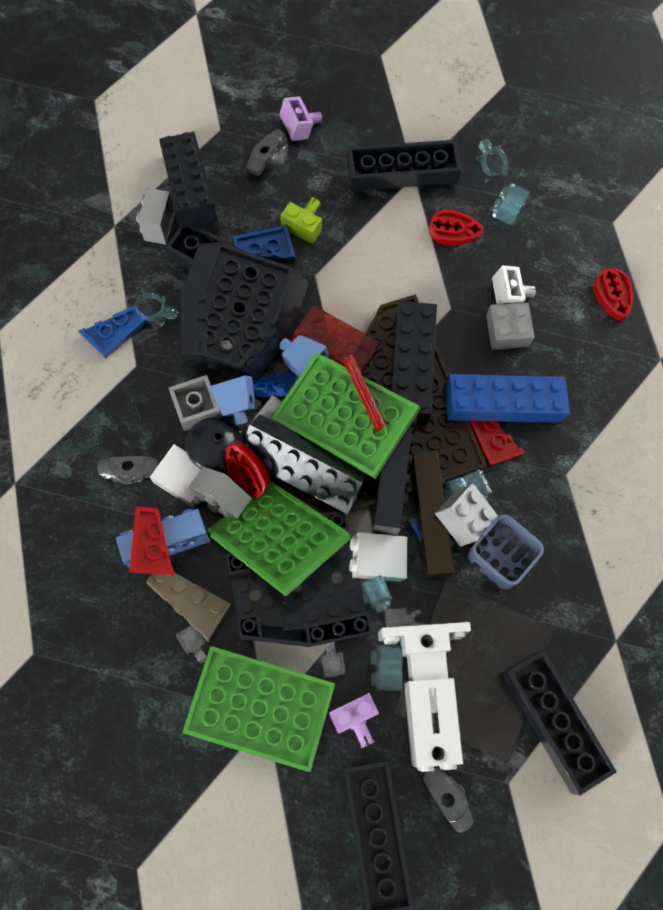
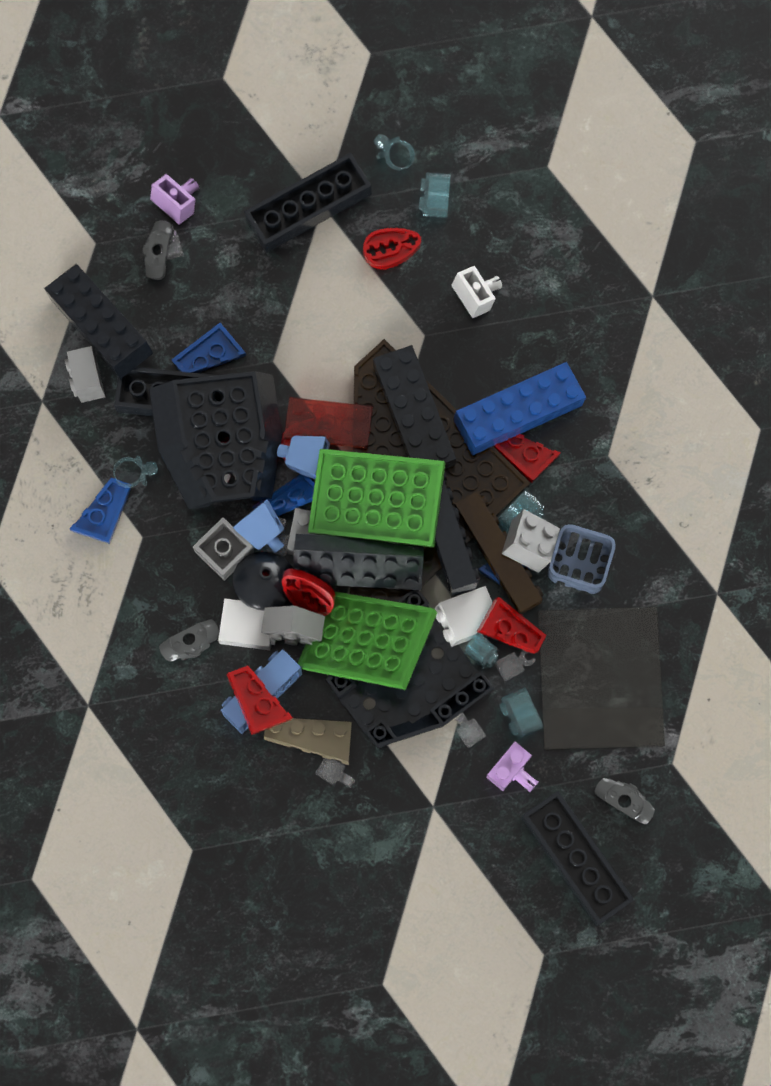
camera: 20 degrees left, 5 degrees up
(259, 708) = (423, 801): bright green plate -> none
(303, 221) = (234, 311): lime brick -> none
(364, 393) = (386, 471): red axle -> none
(413, 585) = (511, 627): none -> red wing
(430, 693) = (567, 715): white brick -> none
(510, 326) = (491, 330): light grey brick -> none
(559, 723) = (691, 689): black brick -> none
(623, 289) = (587, 237): red piece -> none

